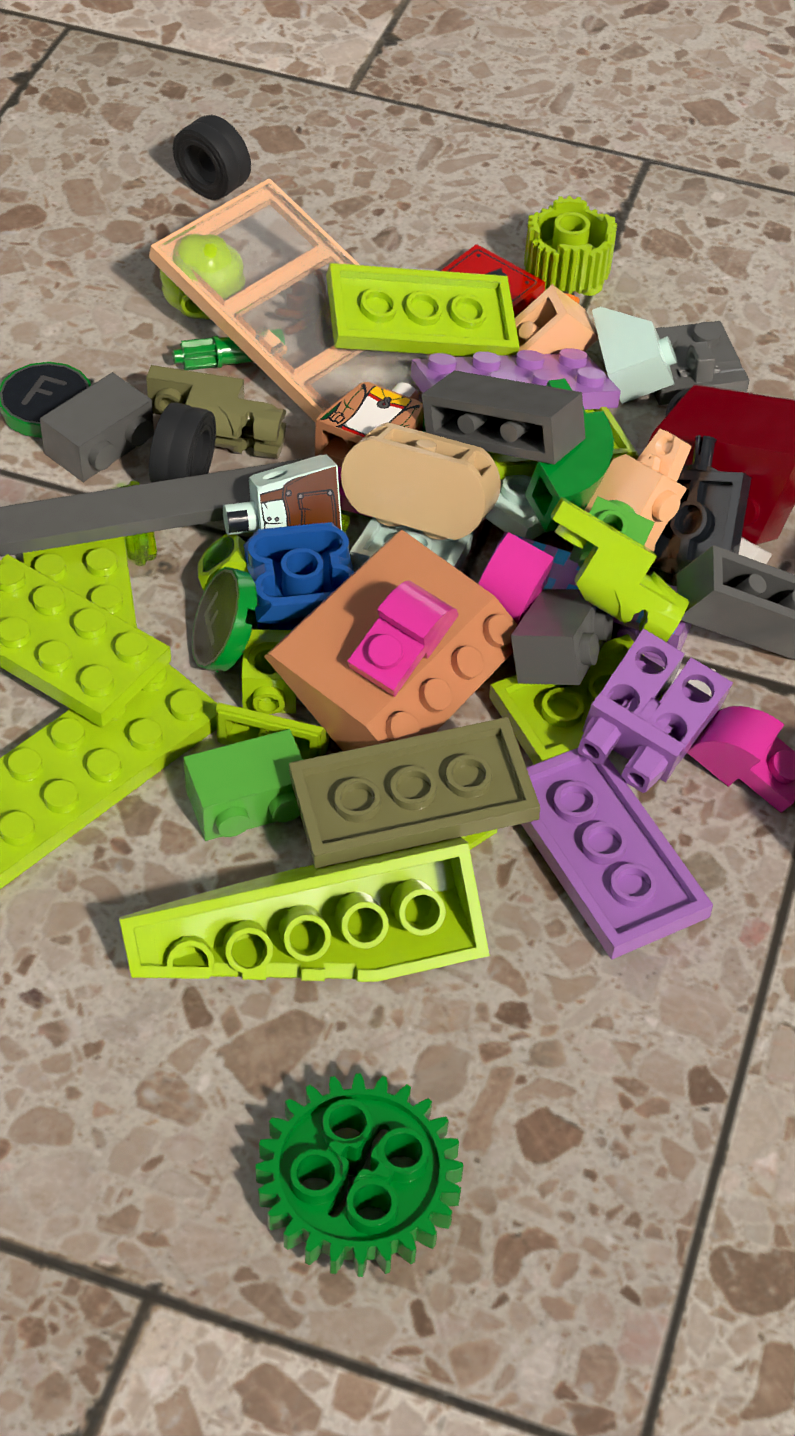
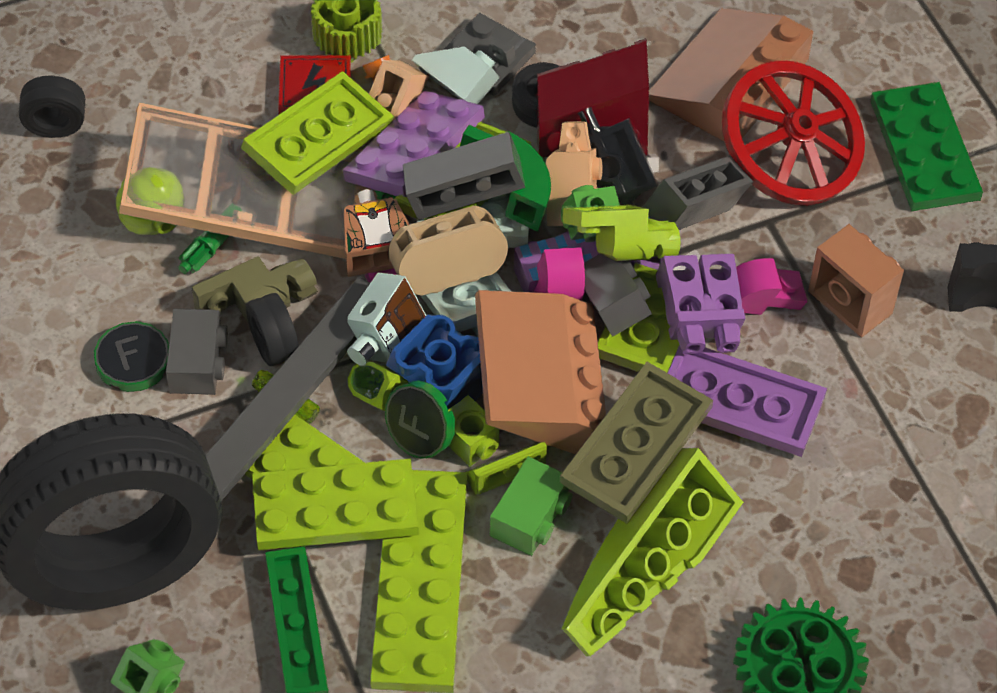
camera: 40 degrees left, 5 degrees up
(406, 631) = (555, 354): dark pink brick -> none

